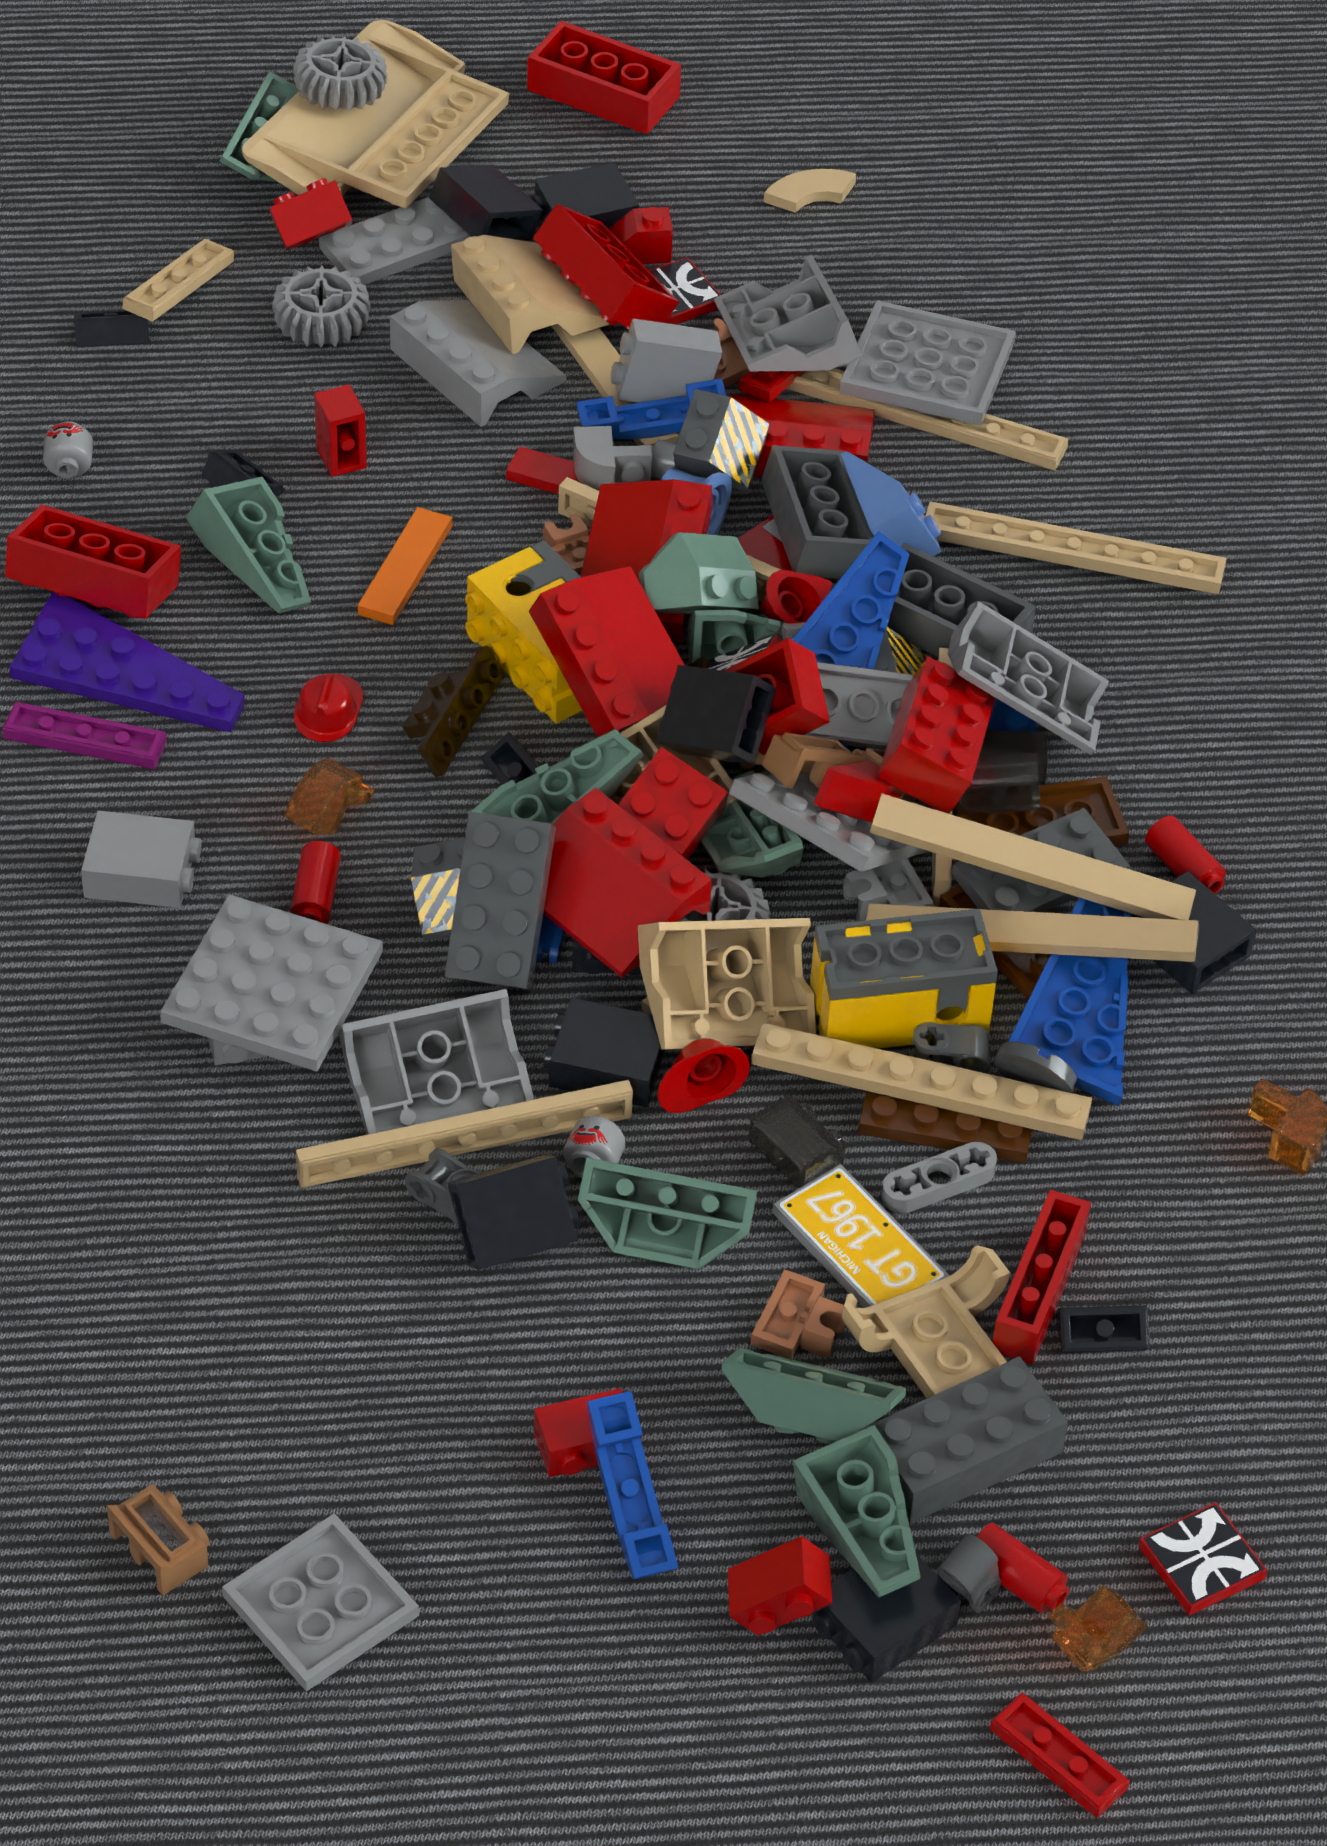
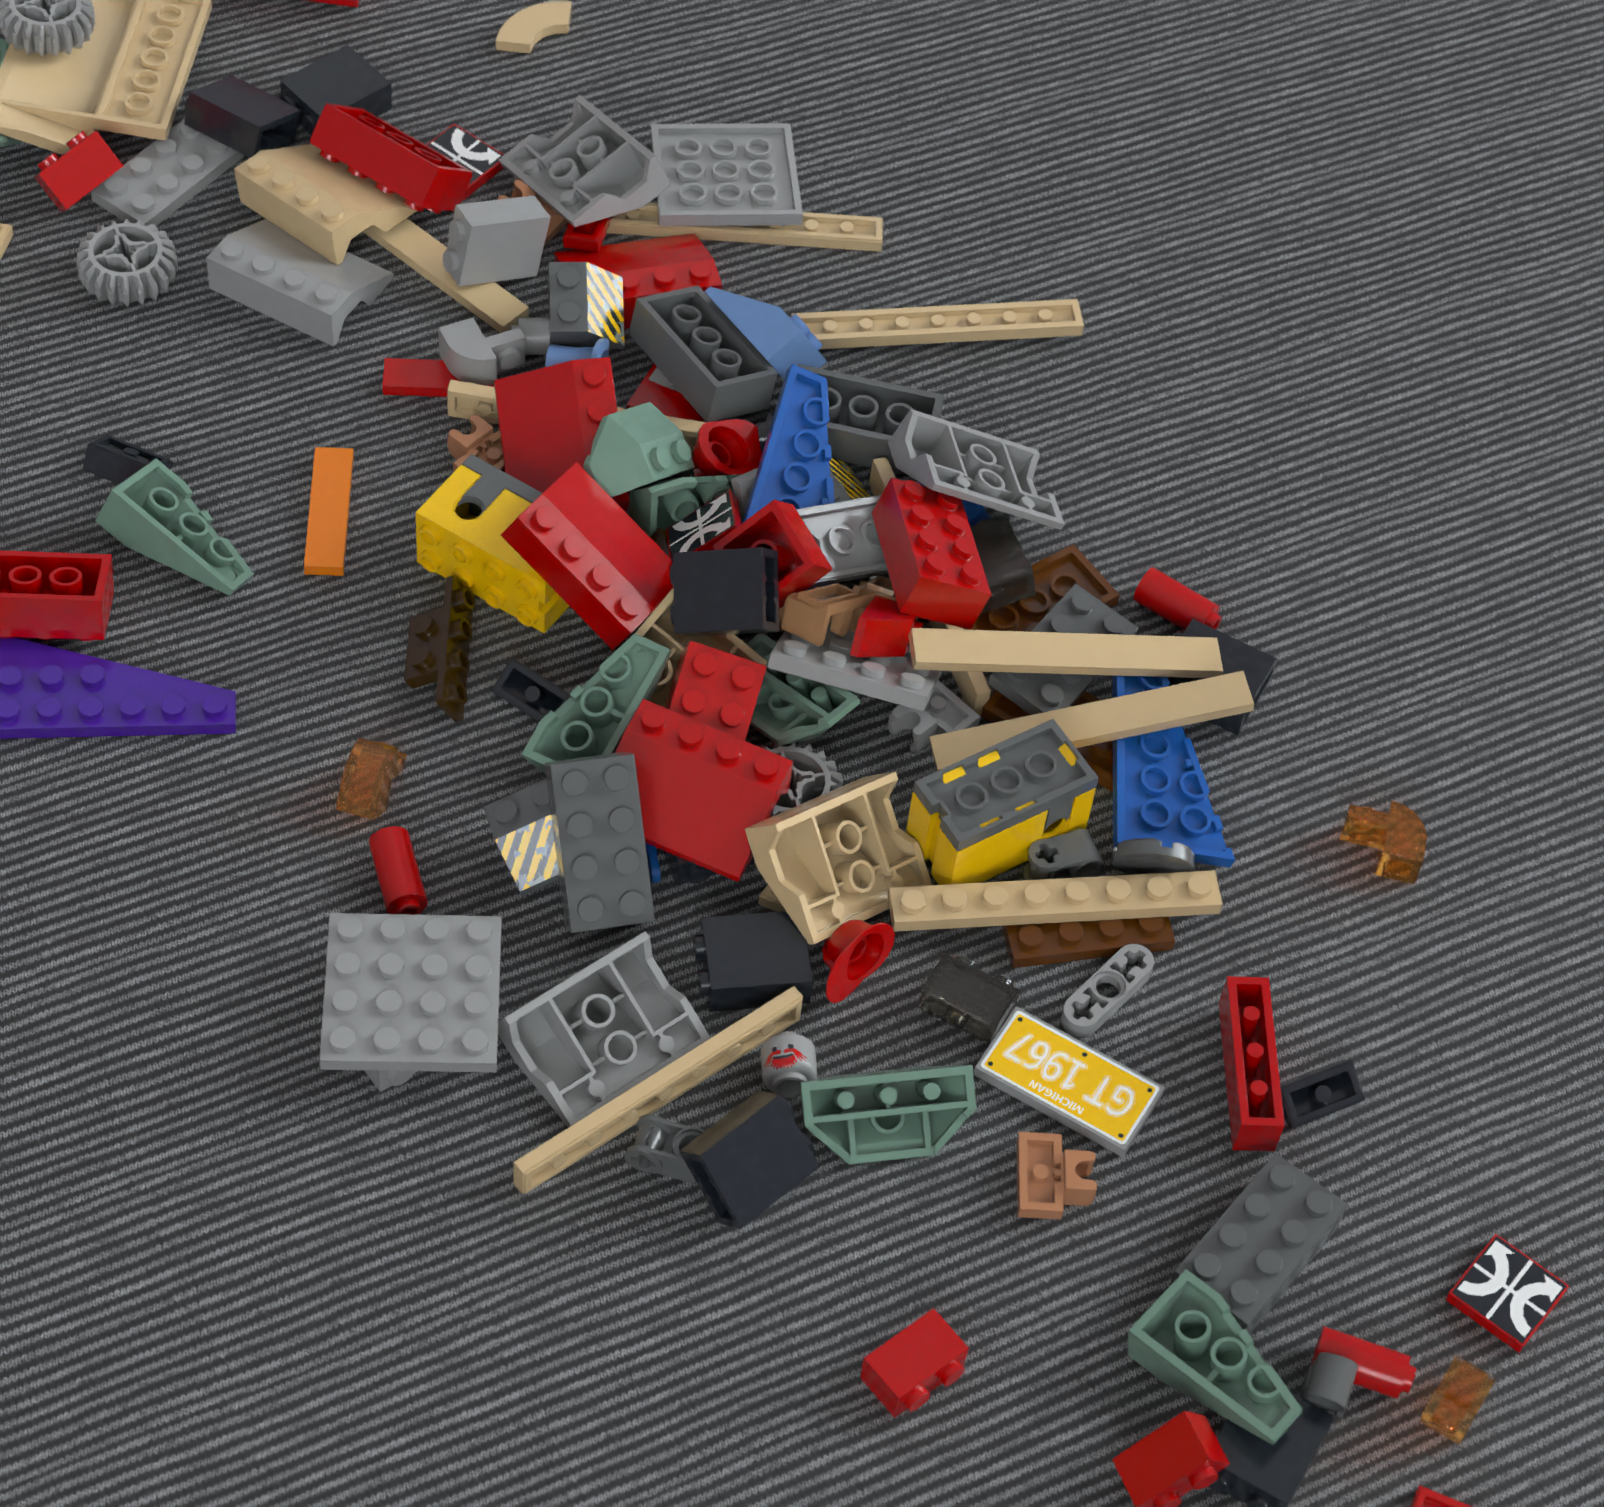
camera: 25 degrees left, 5 degrees up
(84, 735) = (93, 779): magenta tile -> none
(140, 859) = (214, 897): light grey brick -> none
(328, 707) = (320, 679): red piece -> none
(340, 430) = (210, 389): red brick -> none
(629, 1486) = (983, 1409): blue slope -> none
(644, 418) = (500, 295): blue slope -> none
(646, 234) = (409, 109): red slope -> none
(808, 1396) = (1109, 1253): sand green wedge -> none
(935, 1324) = (1180, 1149): tan piece -> none

